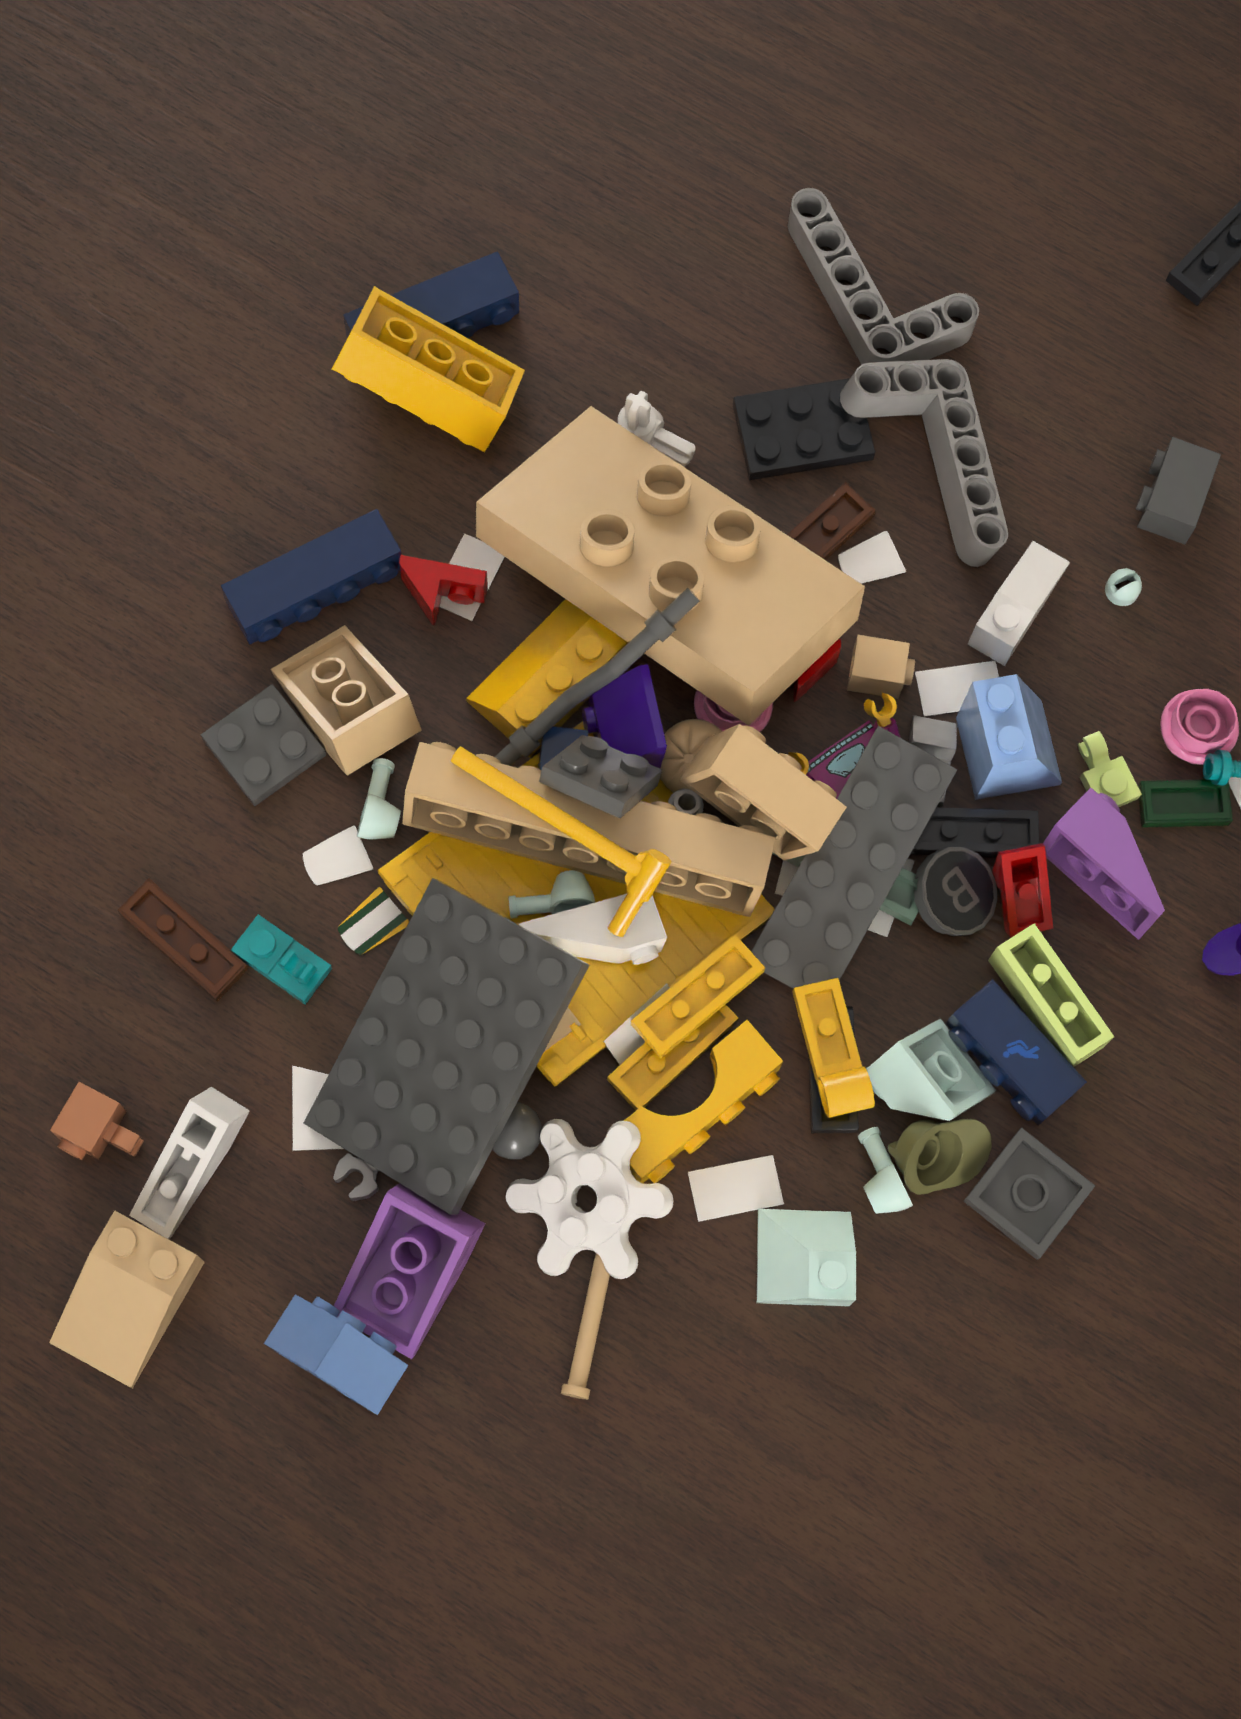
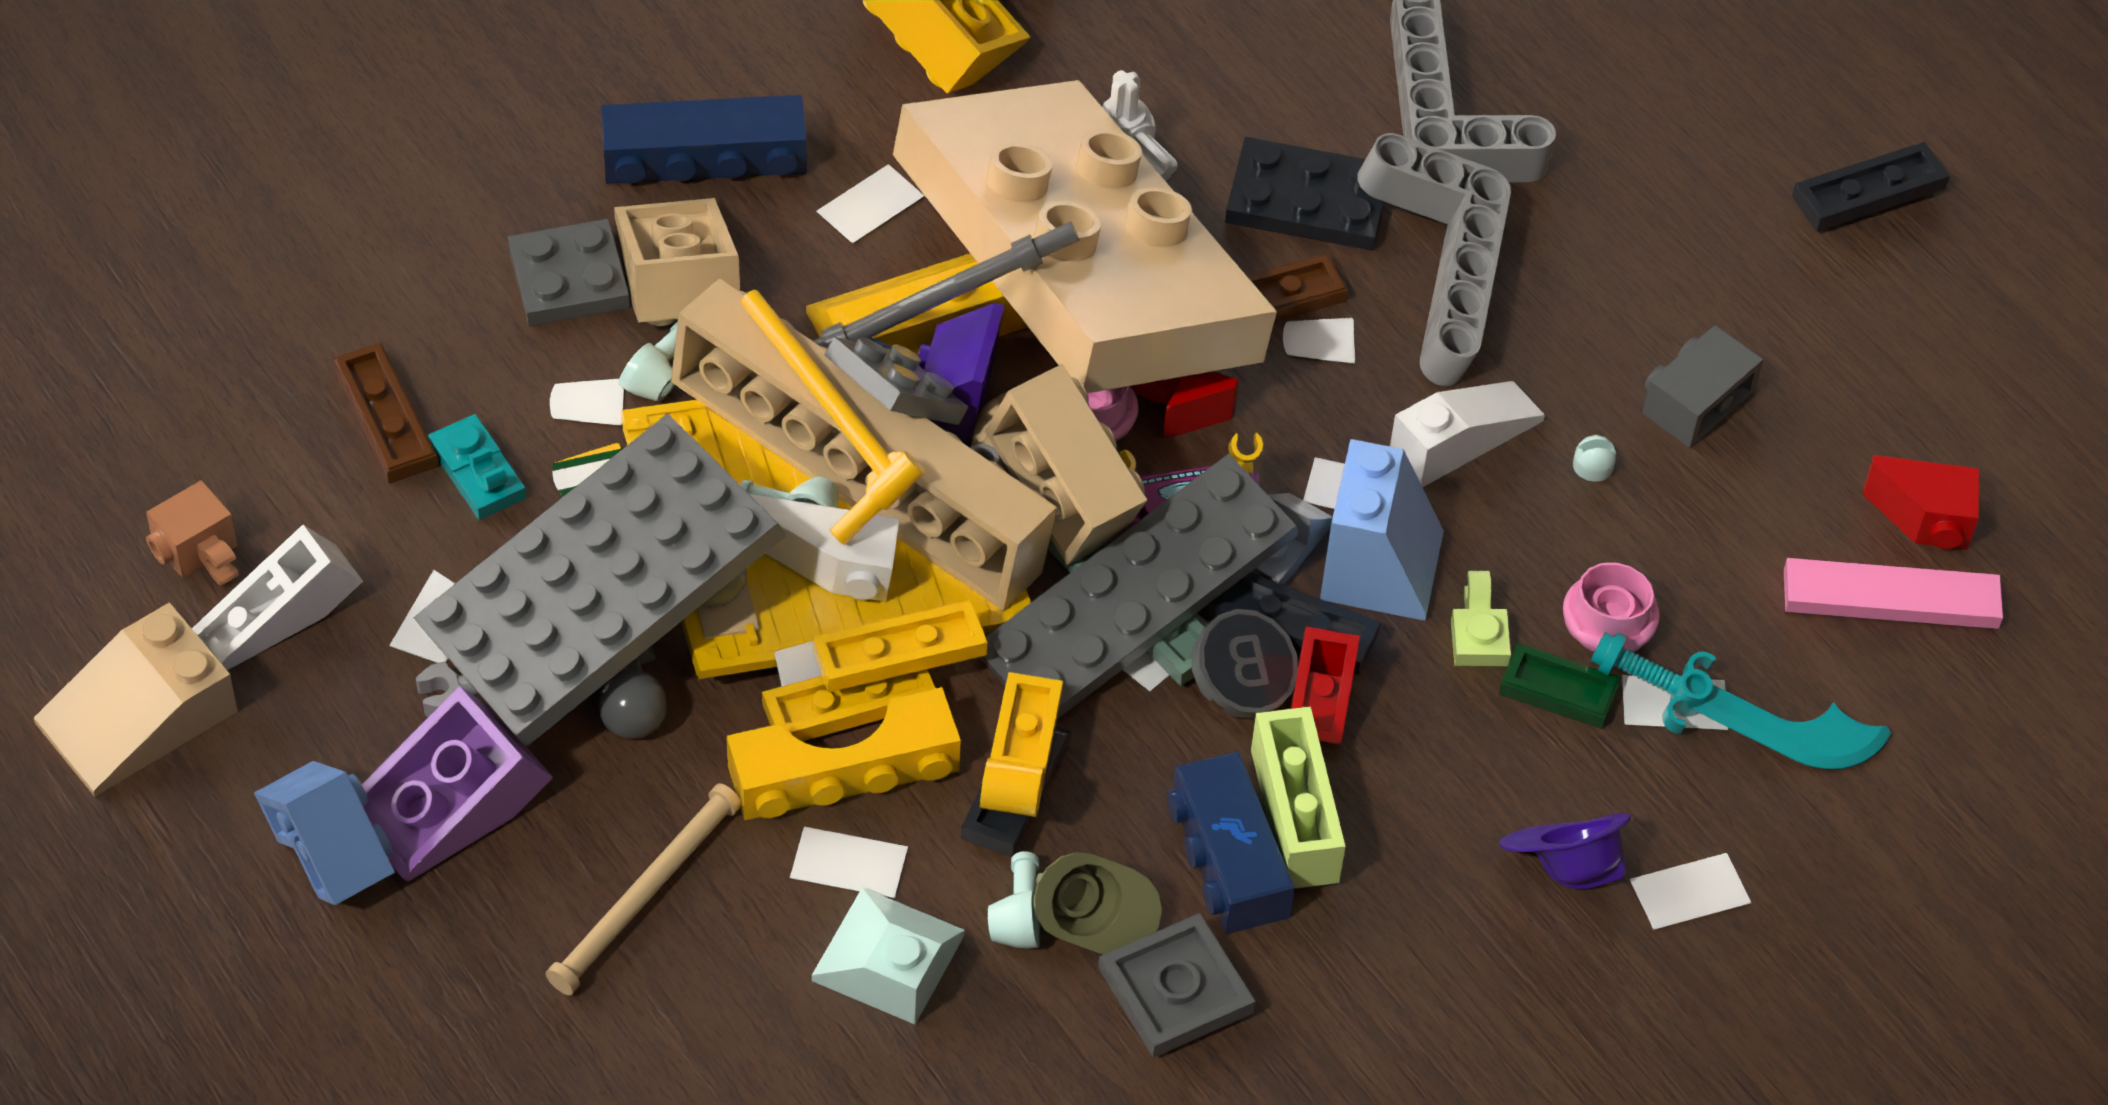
camera: 25 degrees right, 20 degrees down
(433, 579) = (833, 185): red slope -> none
(618, 1193) = (702, 805): white plate -> none
(880, 666) = (1281, 425): tan brick -> none
(929, 1075) = (1120, 817): light aqua slope -> none
(1102, 858) = (1419, 680): medium lavender slope -> none

